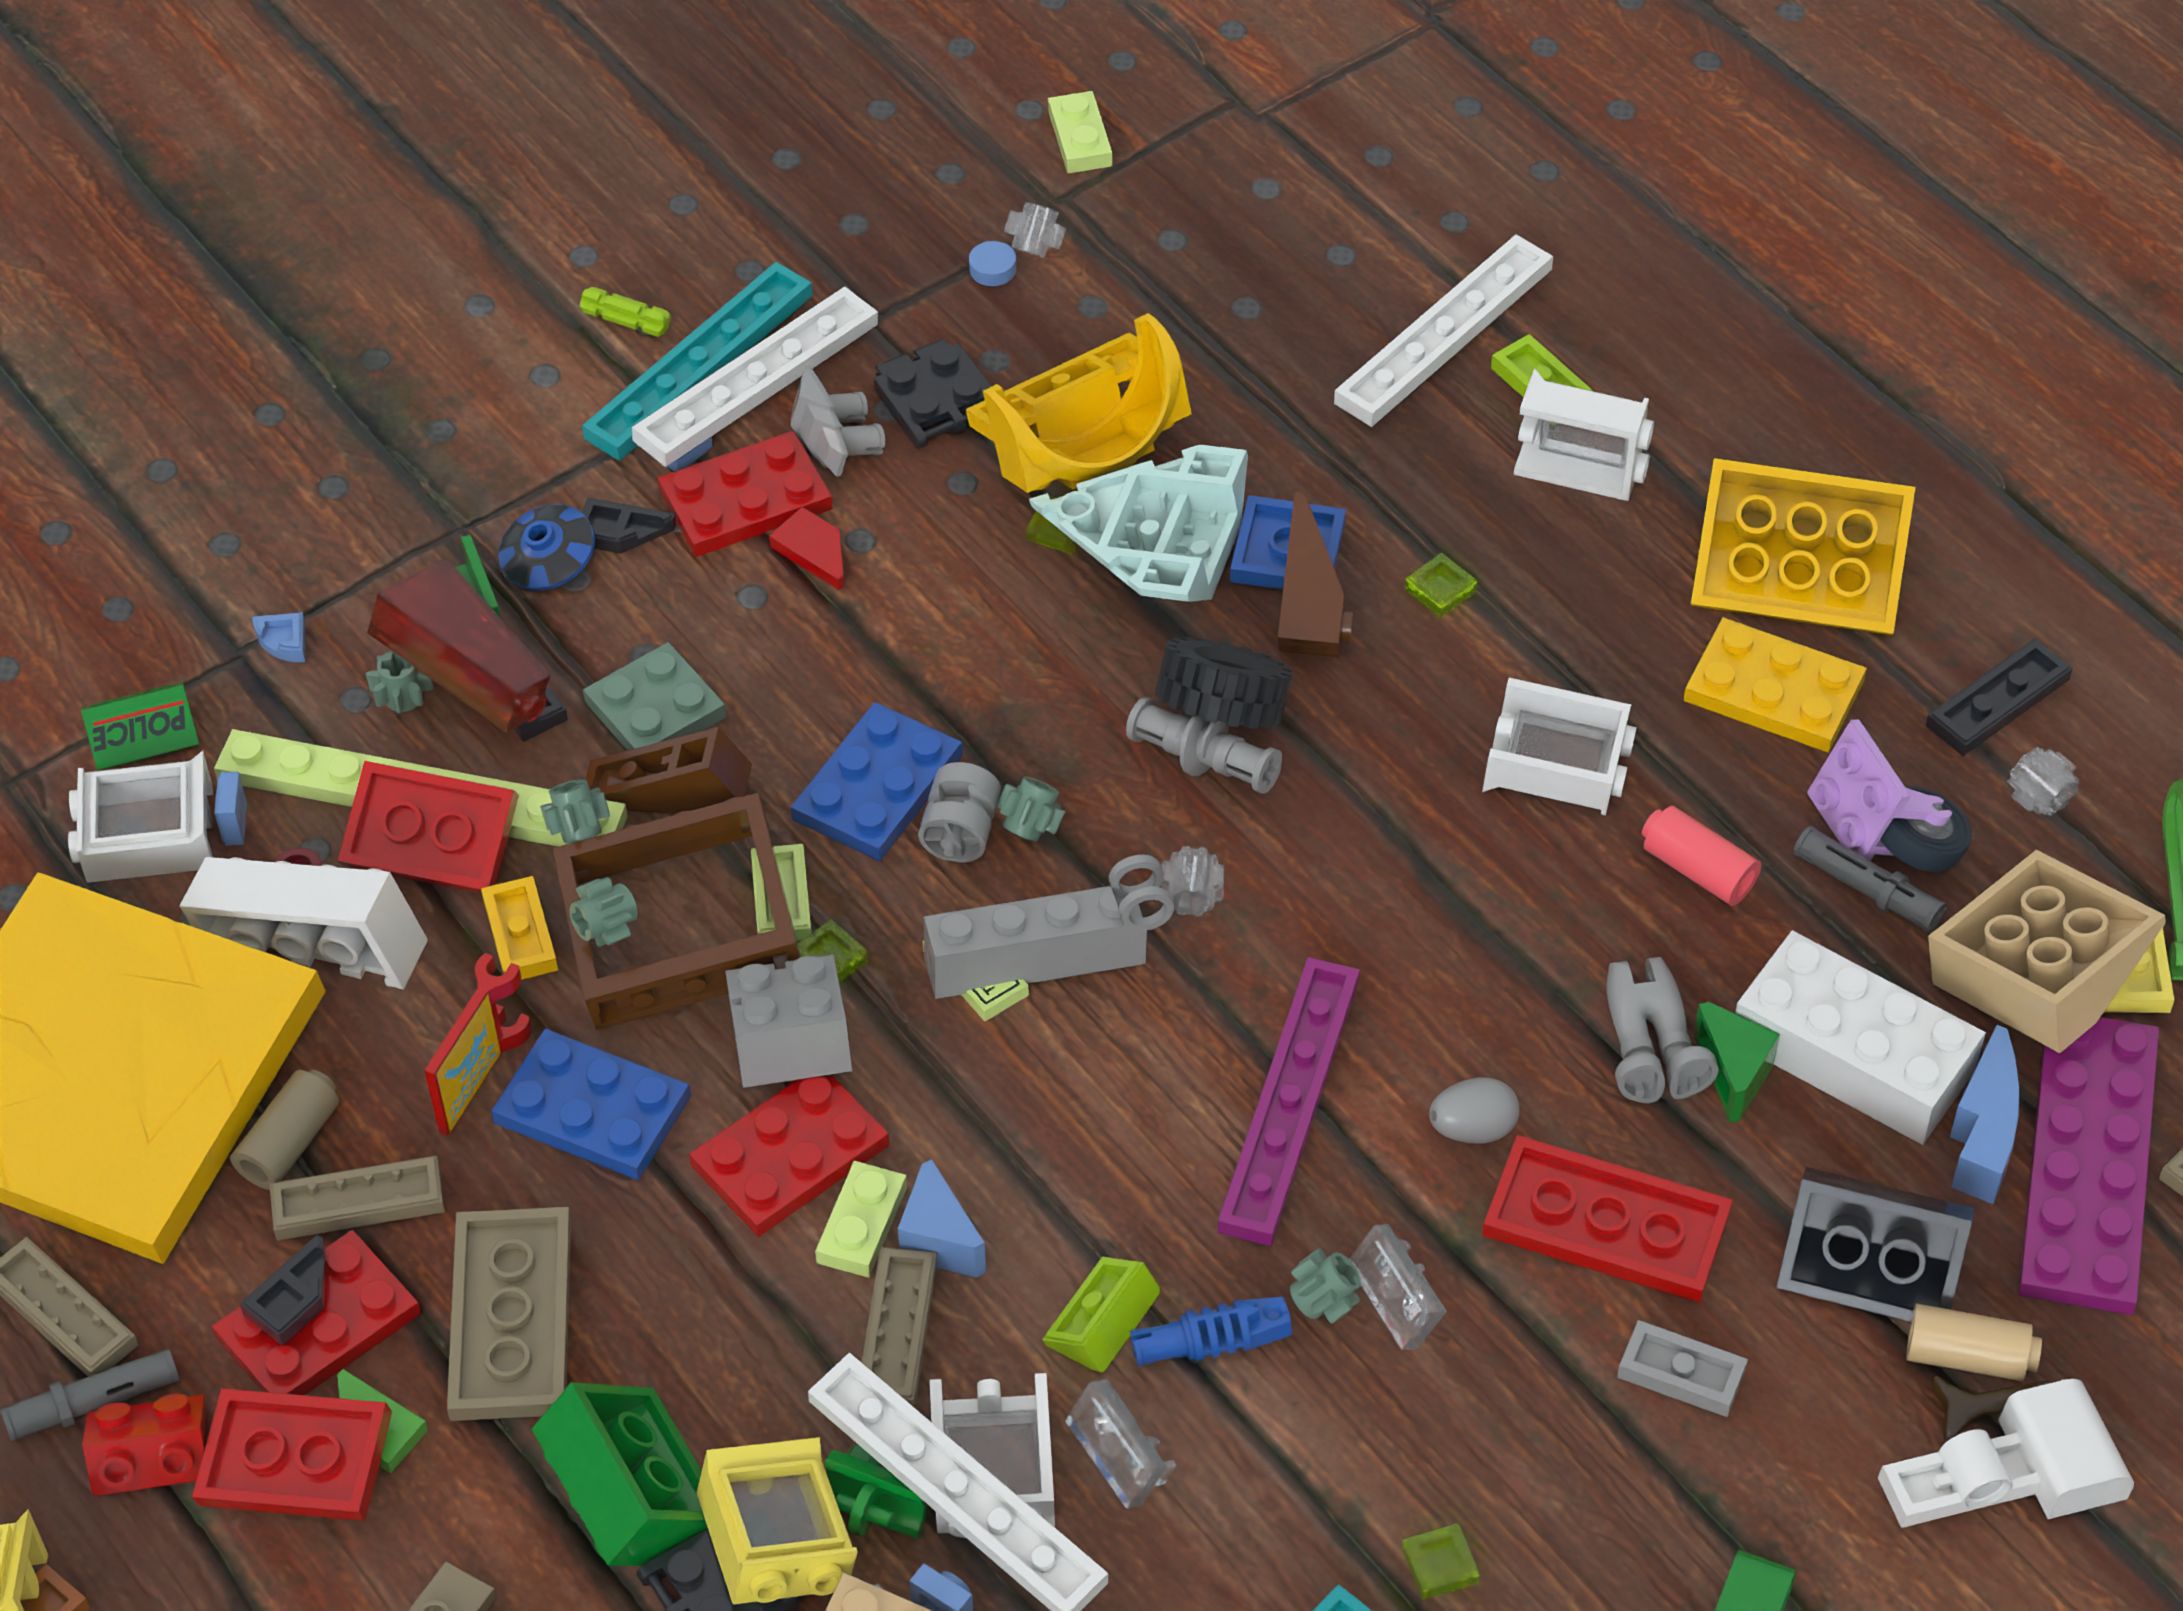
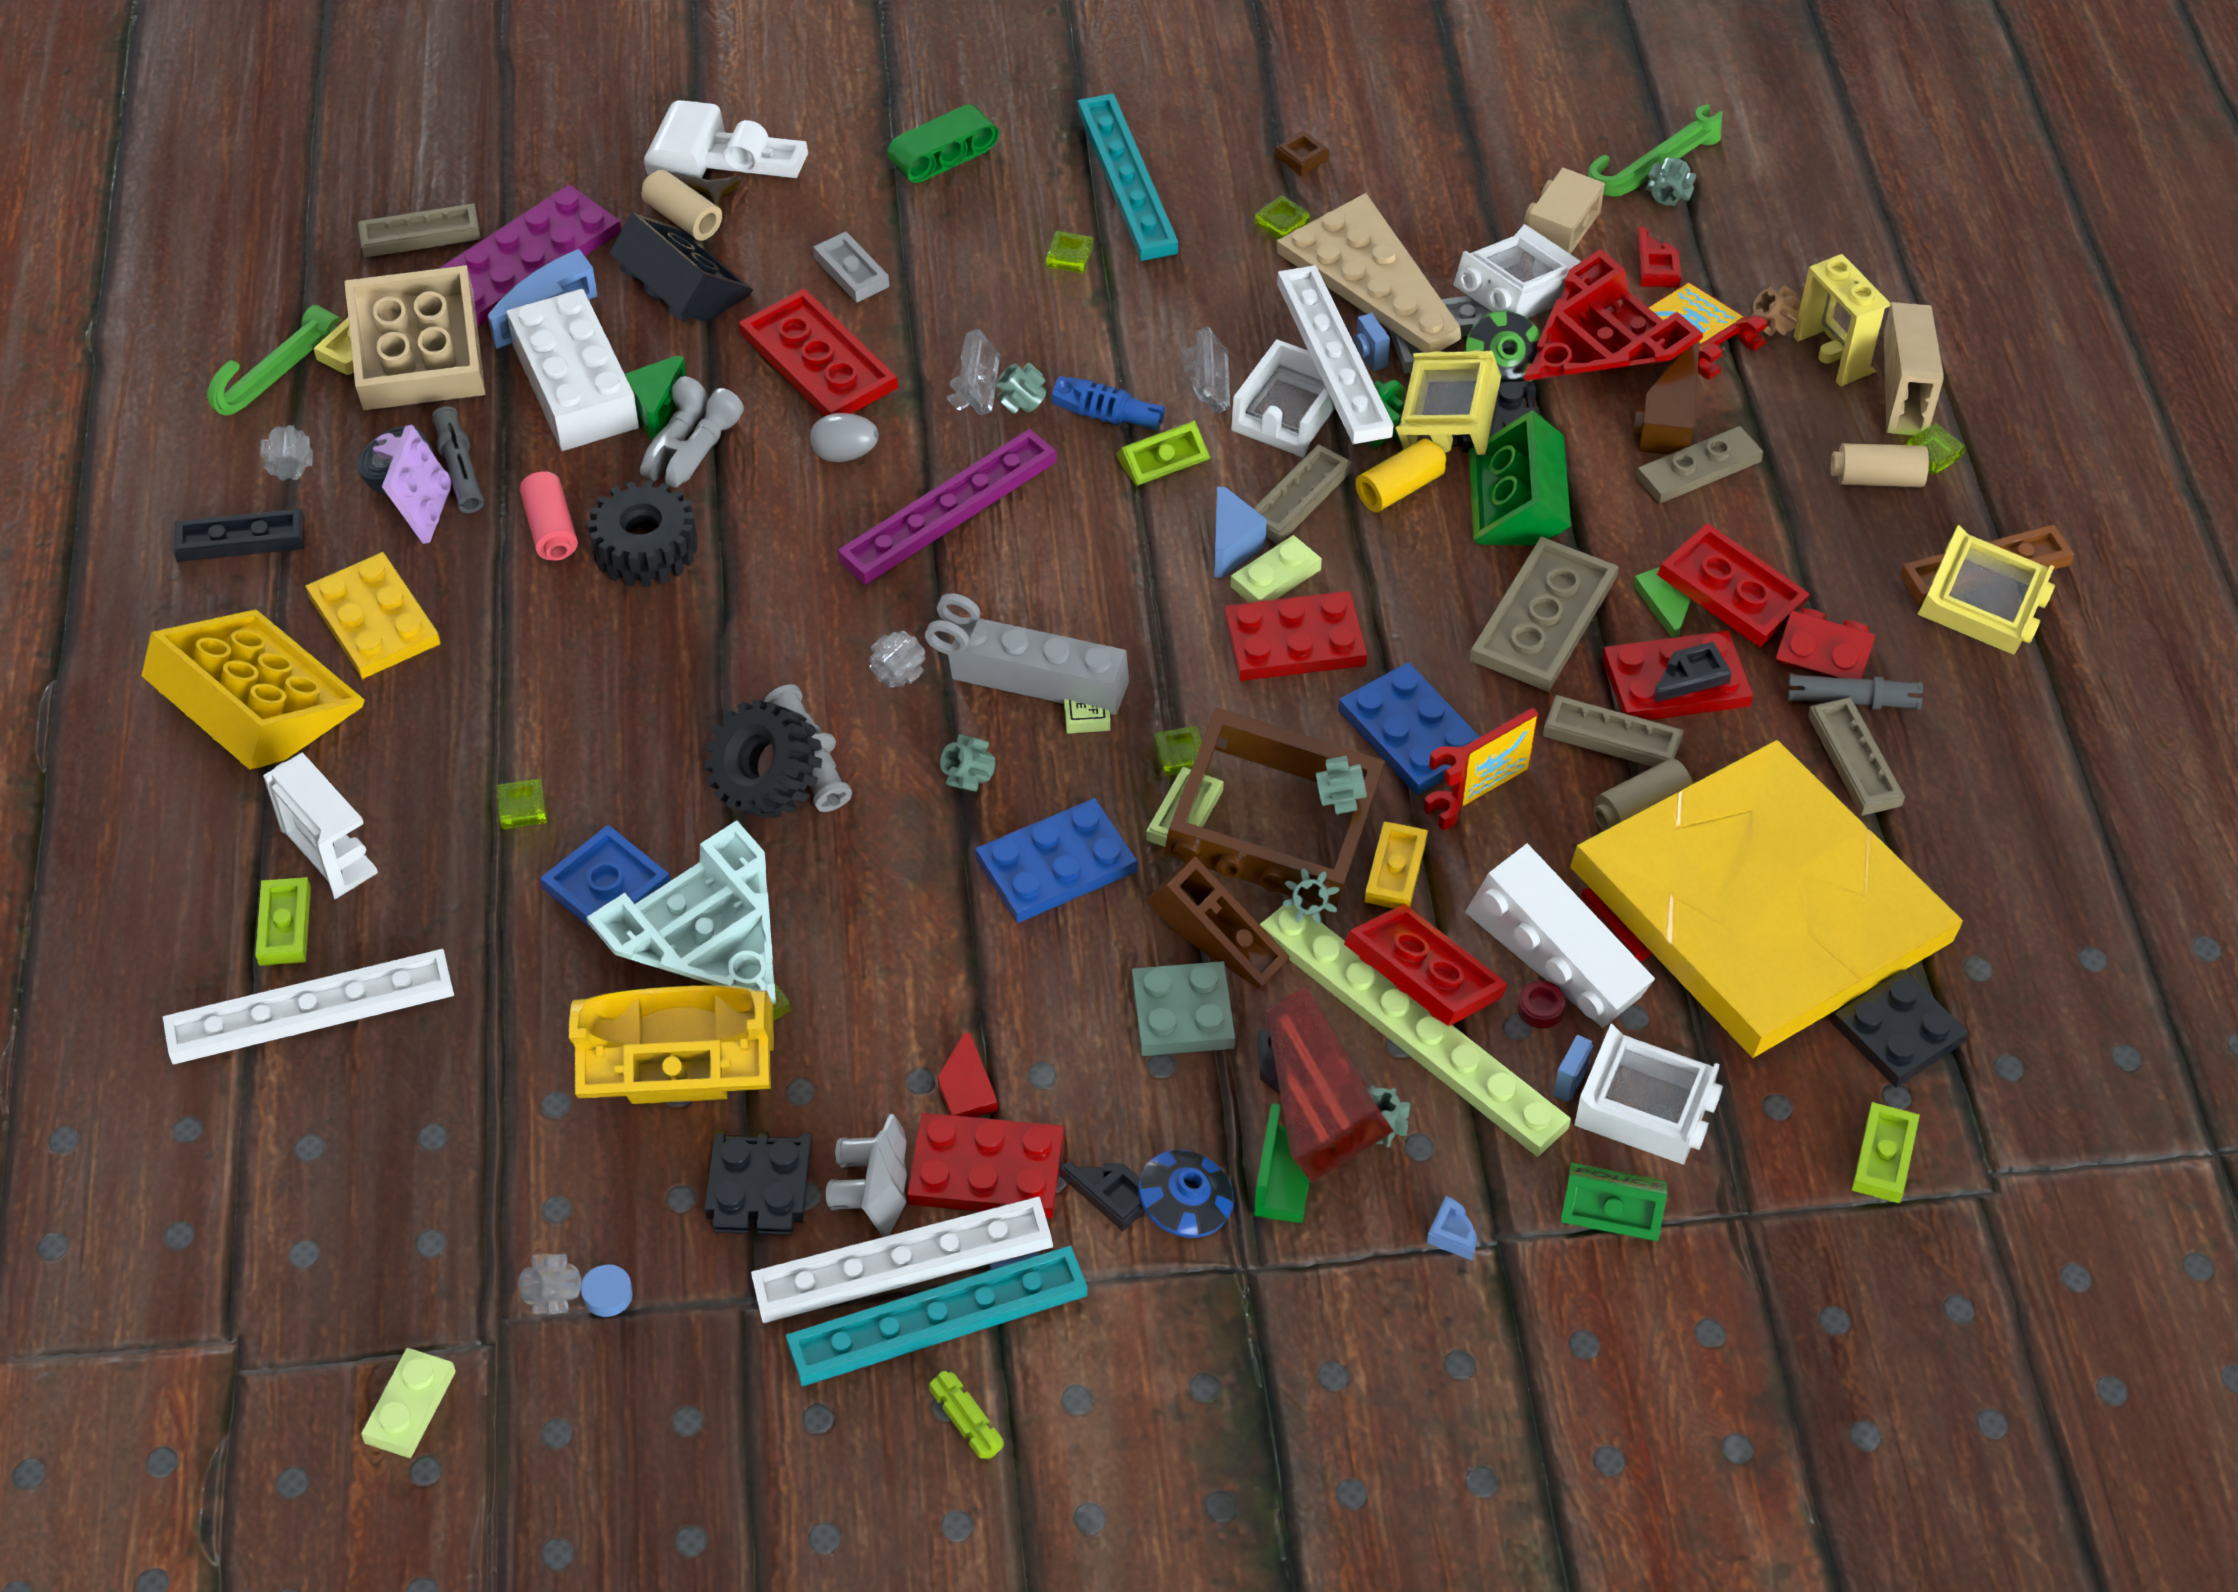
camera: 150 degrees left, 0 degrees up
(785, 1405) = (1401, 474): none -> yellow brick
(788, 1021) = (1247, 675): light grey piece -> none
(959, 812) = (1020, 784): light grey wheel -> none
(1312, 598) = (637, 807): reddish brown slope -> none
(1560, 745) = (569, 630): white window -> none
(1578, 918) = (648, 554): none -> black tyre

